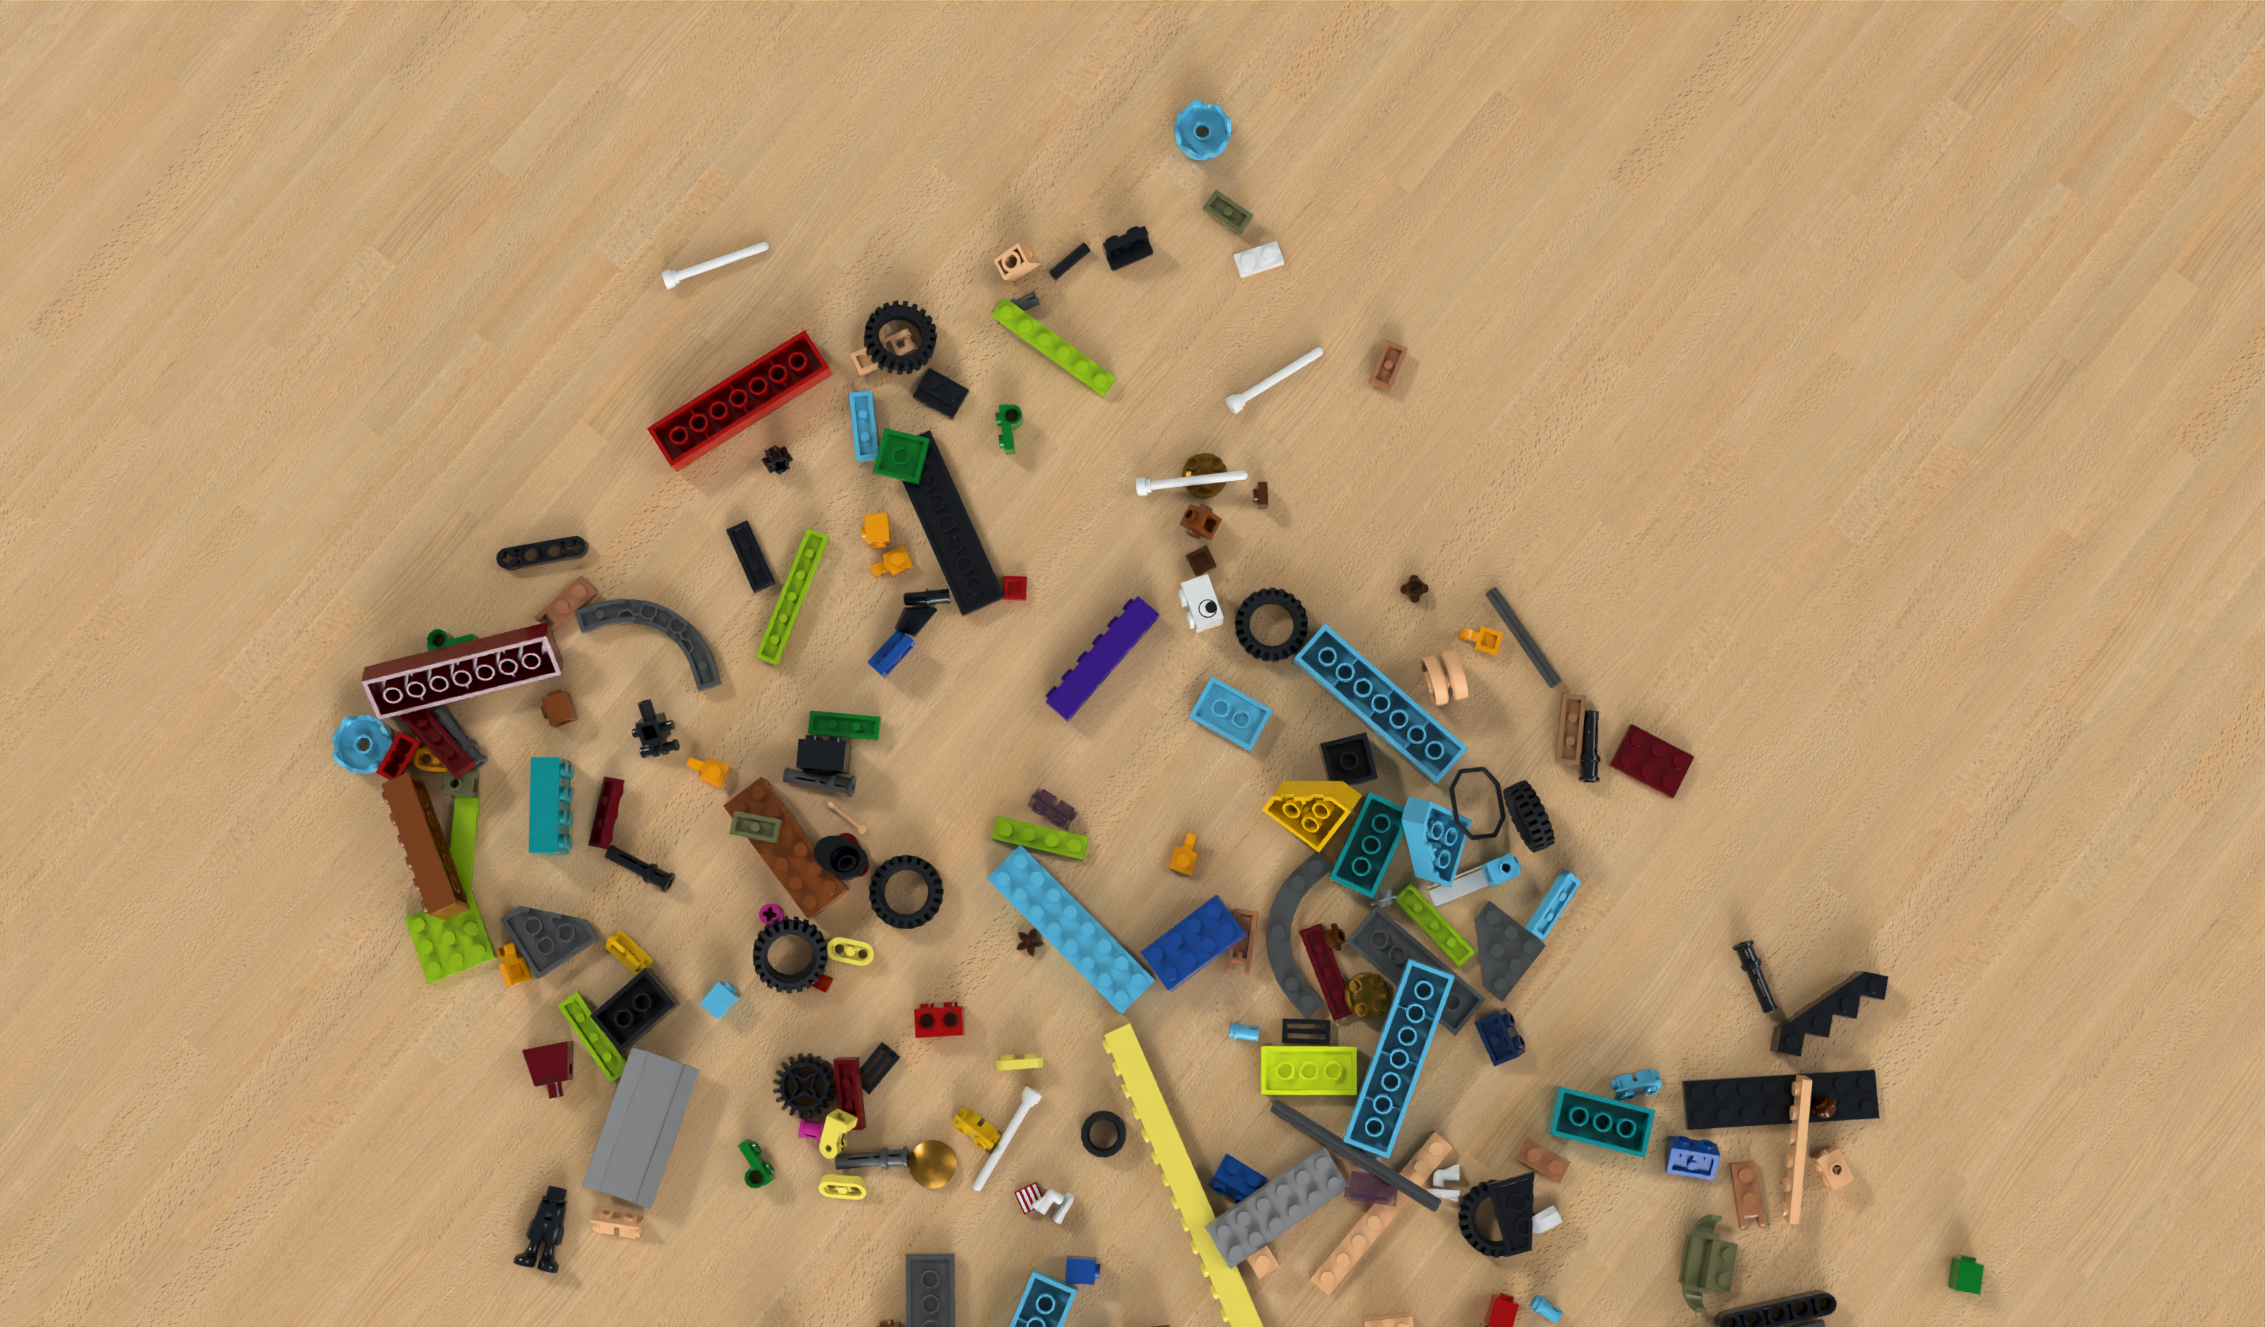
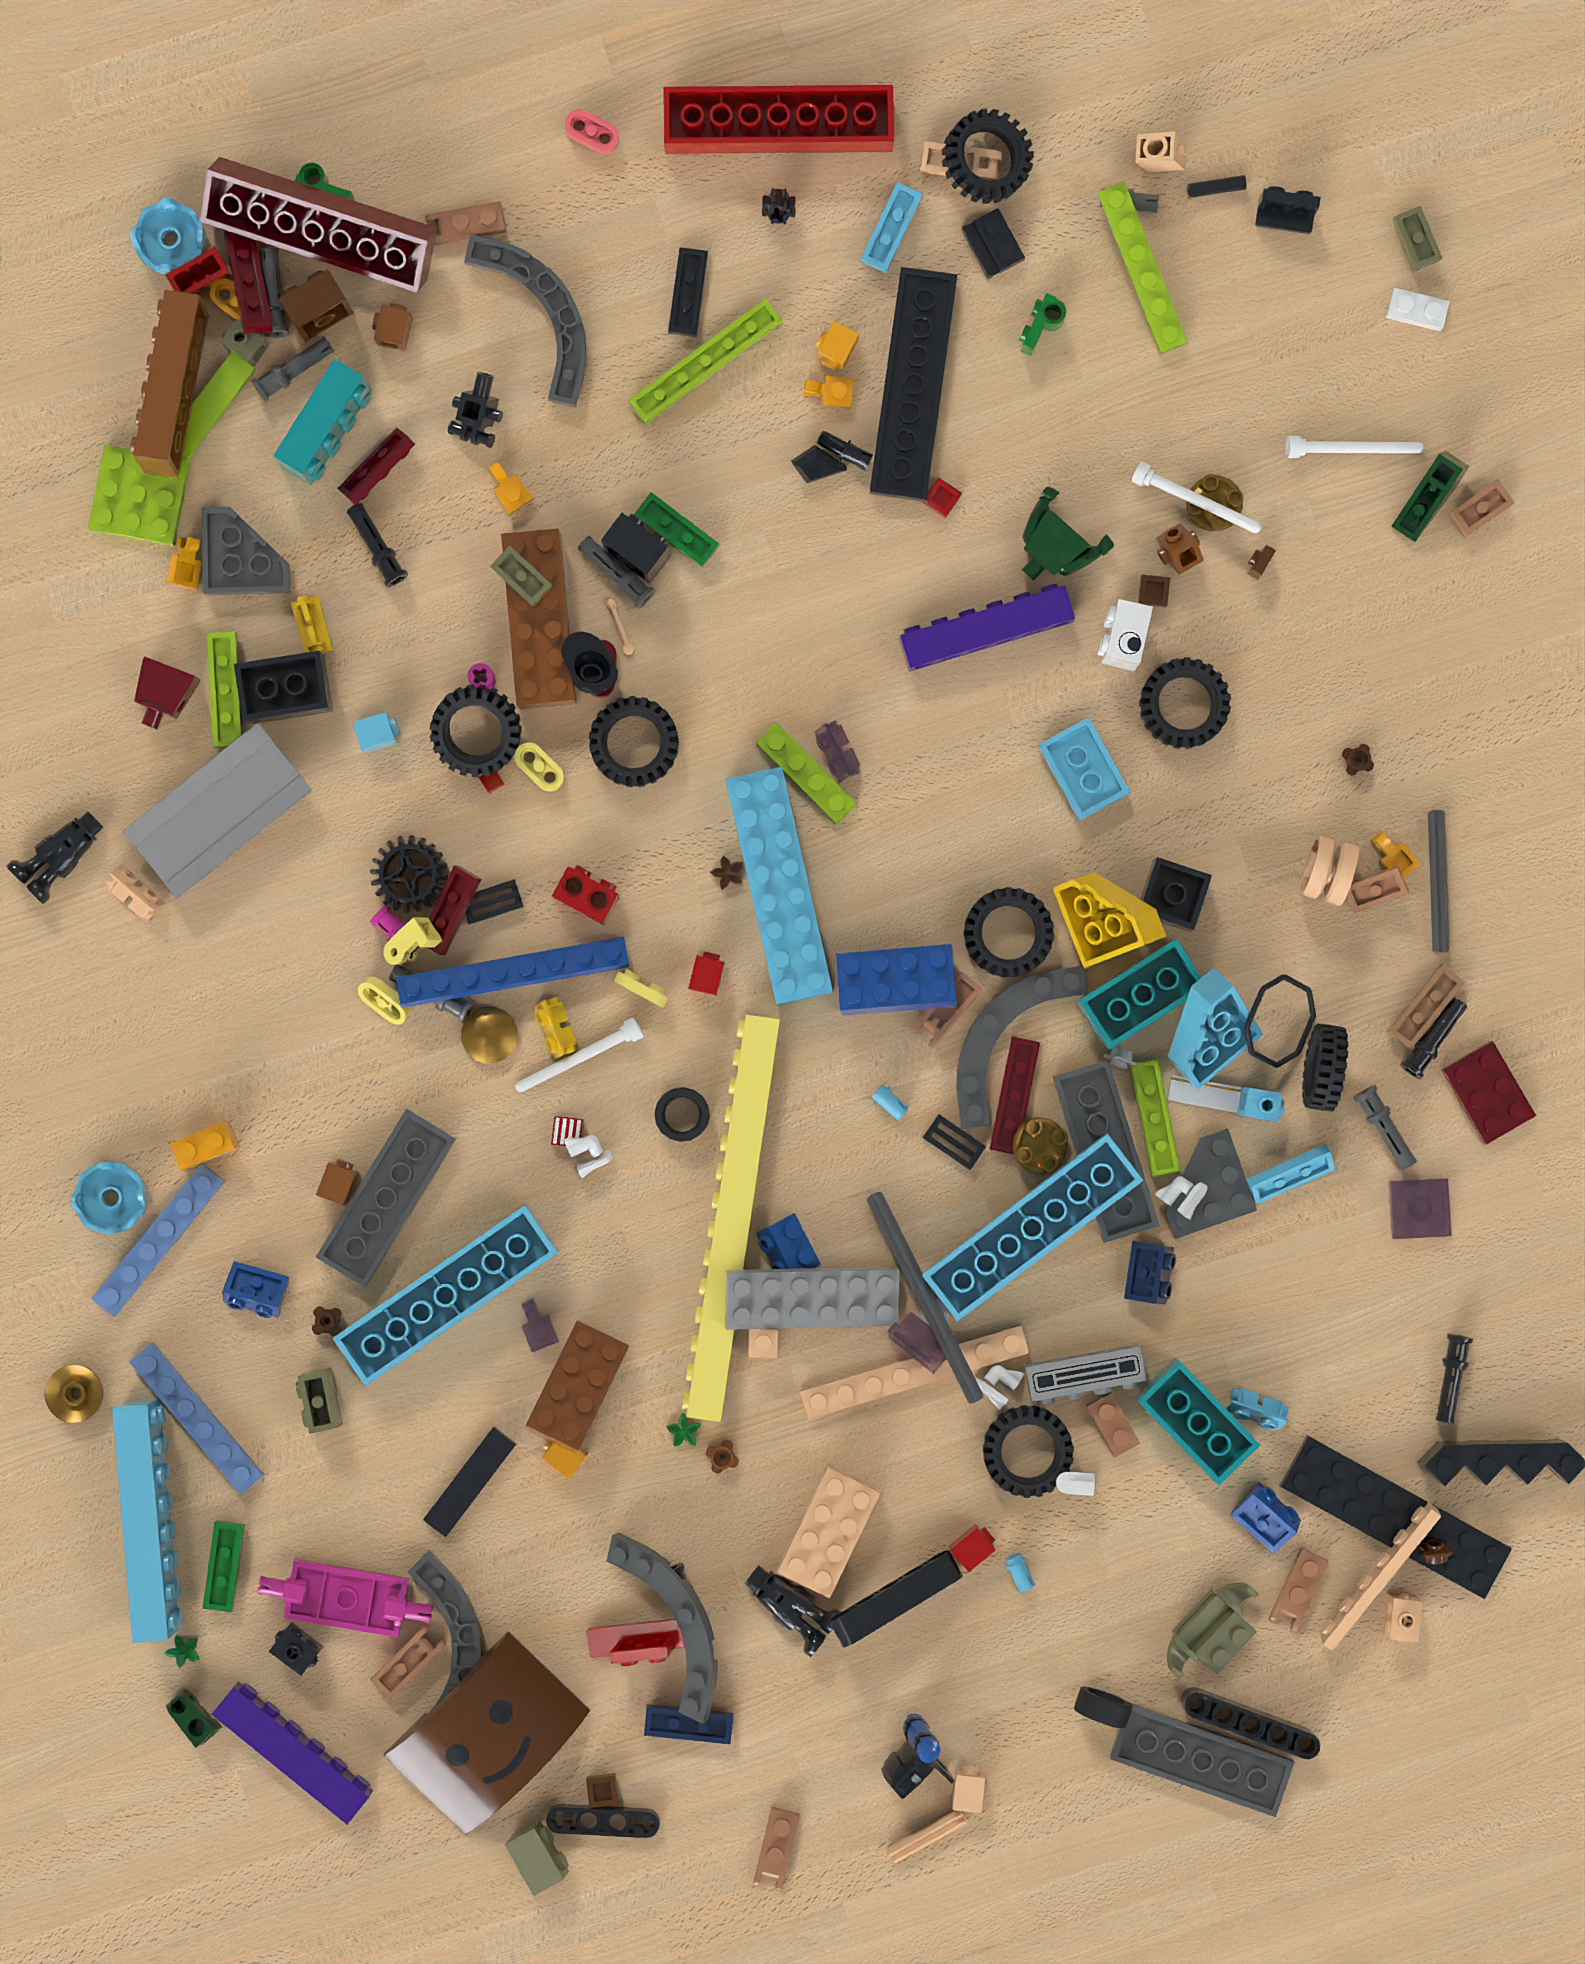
camera: 30 degrees right, 5 degrees up
(495, 727) = (315, 304): none -> reddish brown brick
(501, 791) = (280, 376): none -> dark grey pin
(542, 553) = (472, 156): black beam -> none
(616, 488) = (592, 133): none -> coral plate
(752, 1152) = (313, 907): green plate -> none
(891, 653) = (772, 485): blue bracket -> none
(901, 456) = (910, 283): green plate -> none
(920, 1109) = (512, 972): none -> blue plate
(1059, 1023) = (707, 973): none -> red brick
(1082, 1270) = (574, 1236): blue brick -> none
(1113, 571) = (1055, 543): none -> dark green torso
(1184, 858) = (941, 886): light orange plate -> none
(1198, 116) = (1449, 114): medium azure plate -> none
(1277, 848) = (1043, 932): none -> black tyre
(1308, 1070) = (931, 1182): neon yellow plate -> none
(1334, 937) = (1044, 1065): reddish brown plate -> none
(1348, 379) = (1430, 495): none -> dark green slope
(1380, 704) = (1244, 855): medium azure brick -> none
(1482, 961) = (1194, 1195): none -> white piece
(1485, 669) = (1377, 888): none -> nougat plate
(1500, 1137) = (1085, 1373): none -> light grey brick
(1513, 1208) = (1050, 1454): black wing -> none
(1587, 825) = (1378, 1115): none -> dark grey pin
(1656, 871) = (1419, 1208): none -> clear purple plate
(1966, 1275) = (1469, 1809): green brick -> none

